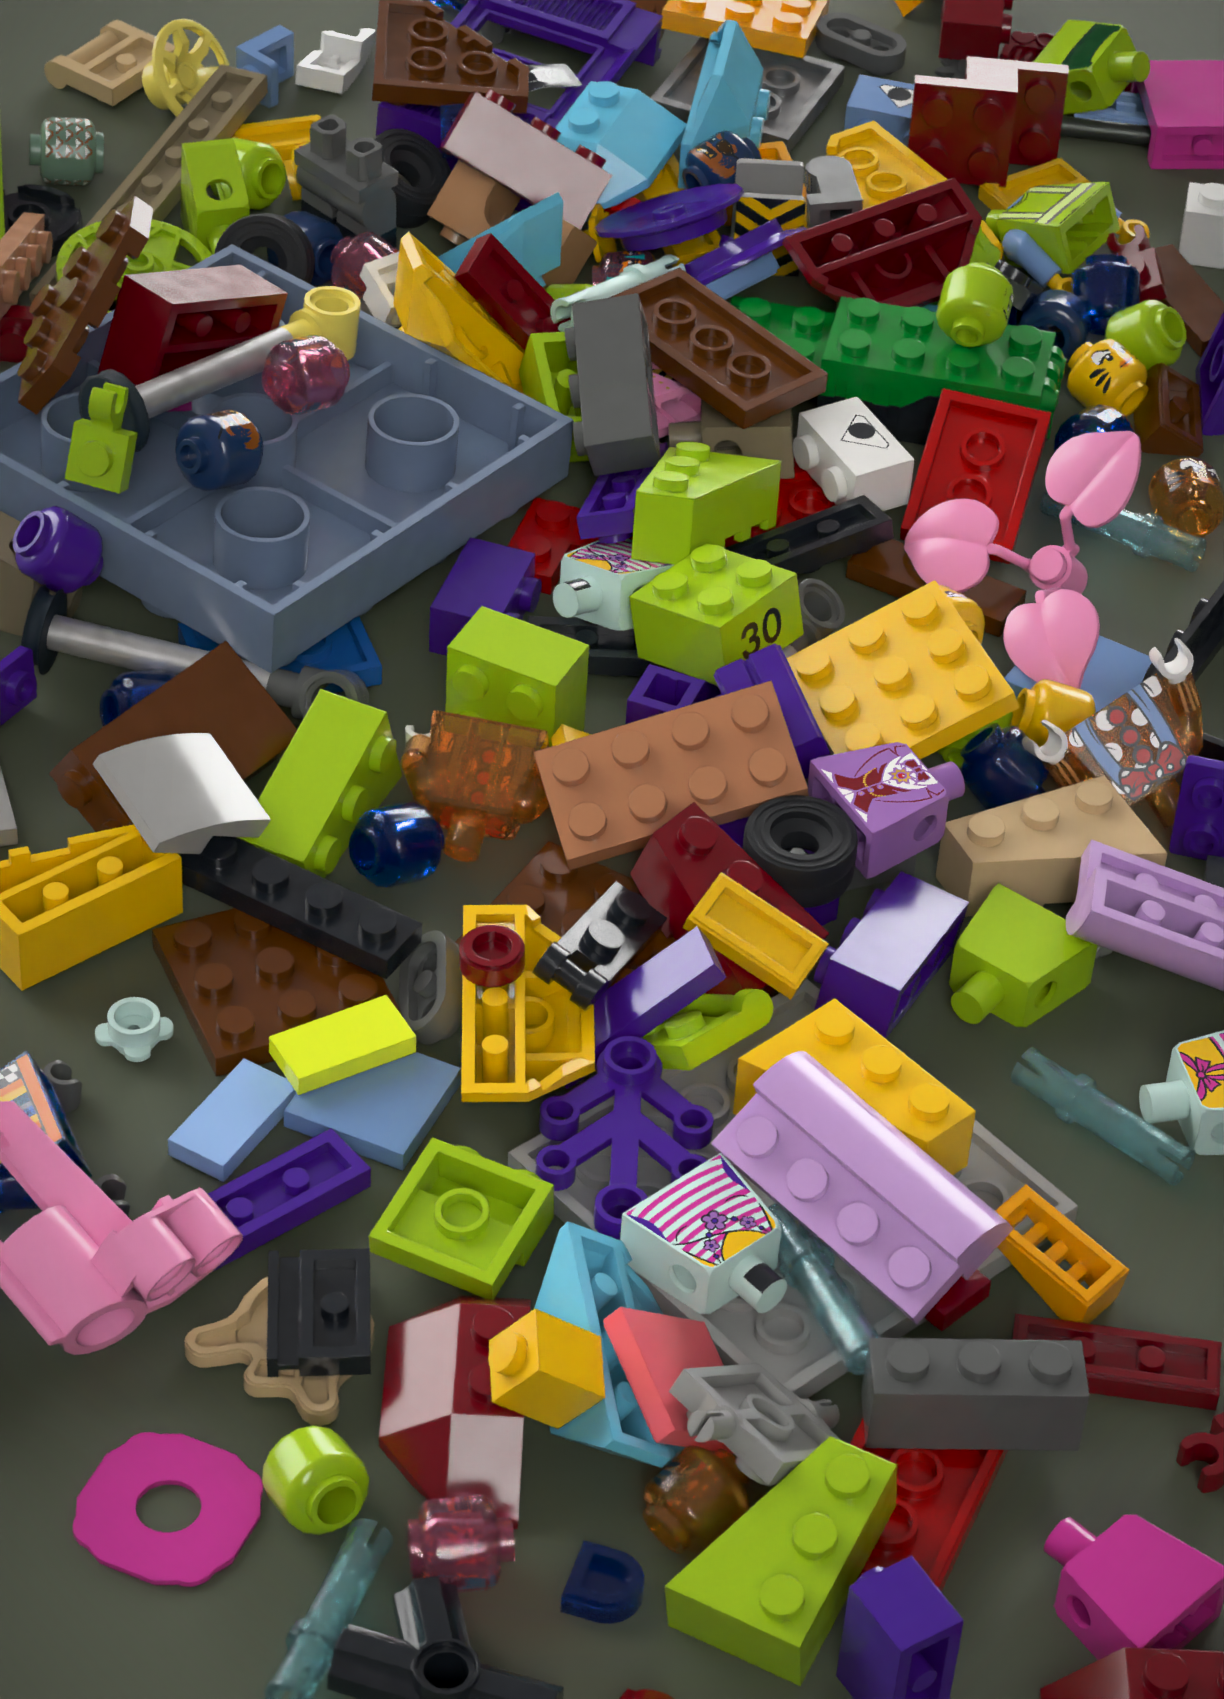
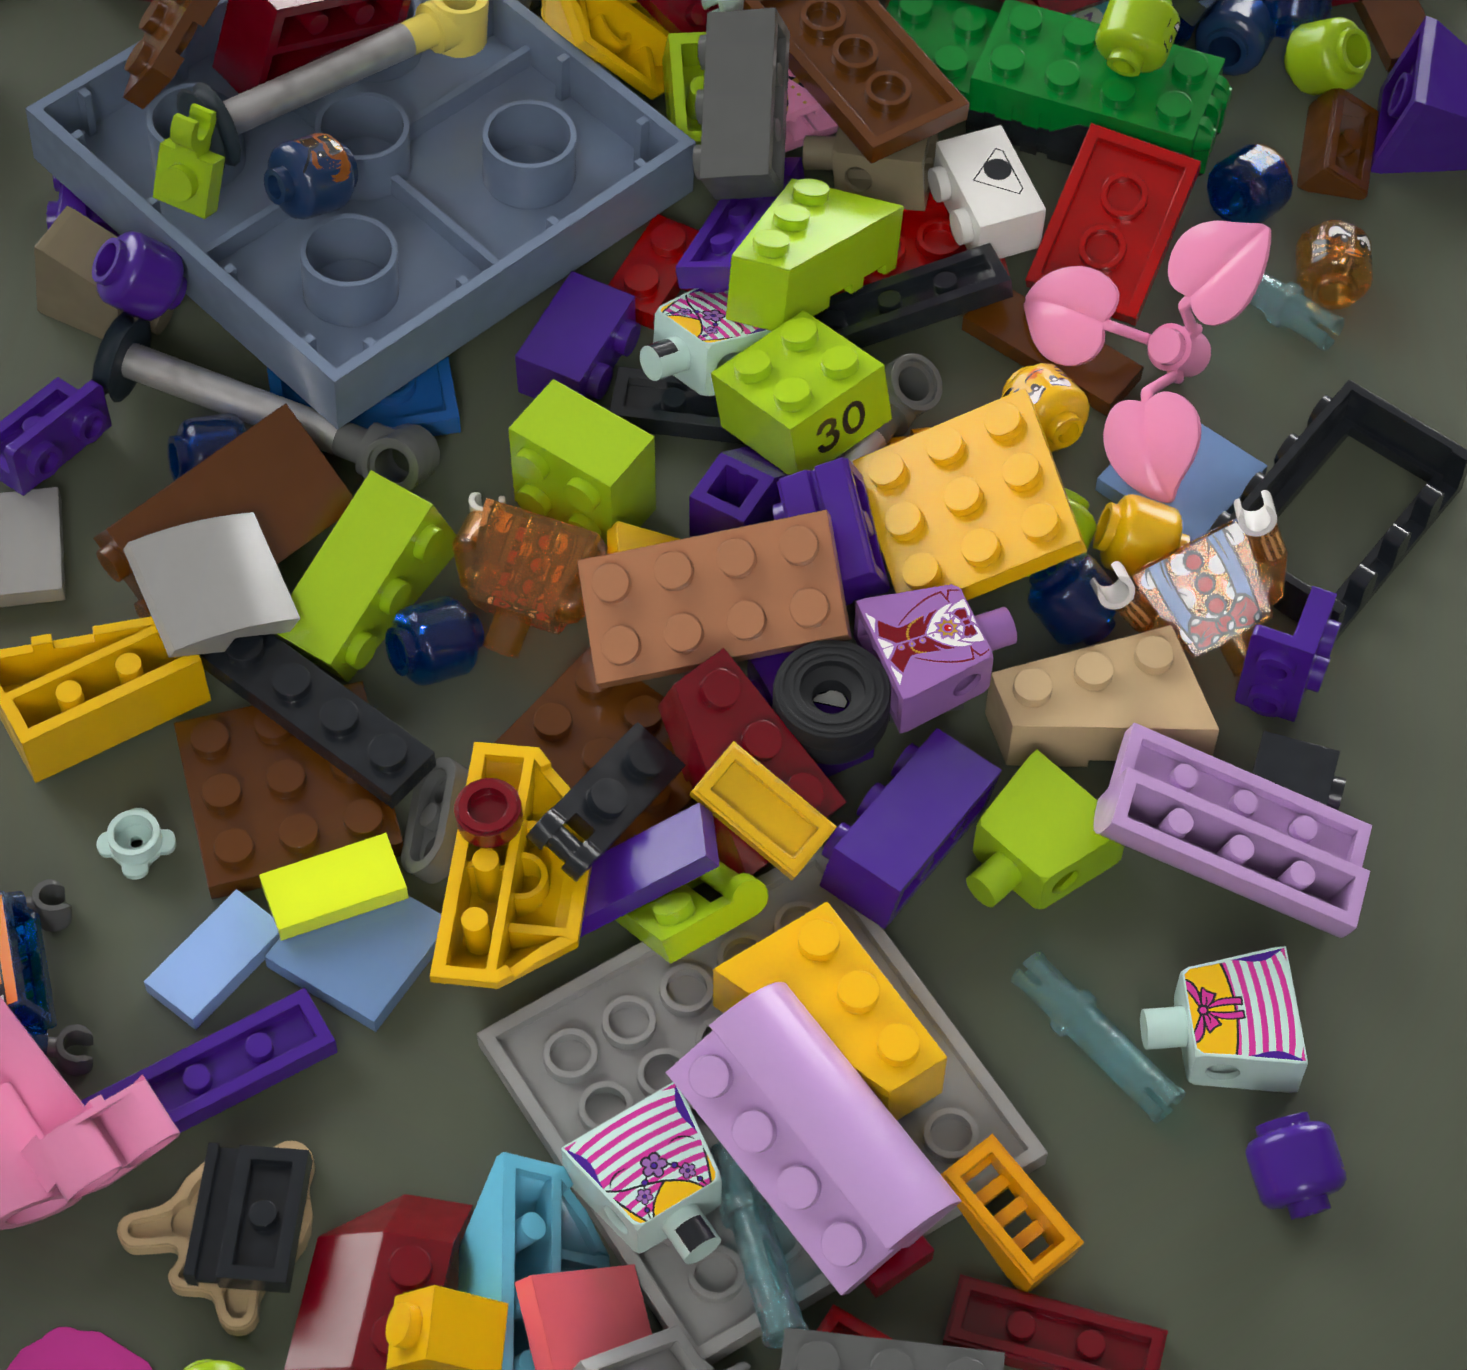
camera: 10 degrees right, 15 degrees up
(305, 374) = (419, 82): clear pink head -> none
(464, 1218) = (416, 1113): lime plate -> none
(628, 1072) = (592, 1024): dark purple plant -> none
(1107, 376) = (1278, 103): yellow head -> none

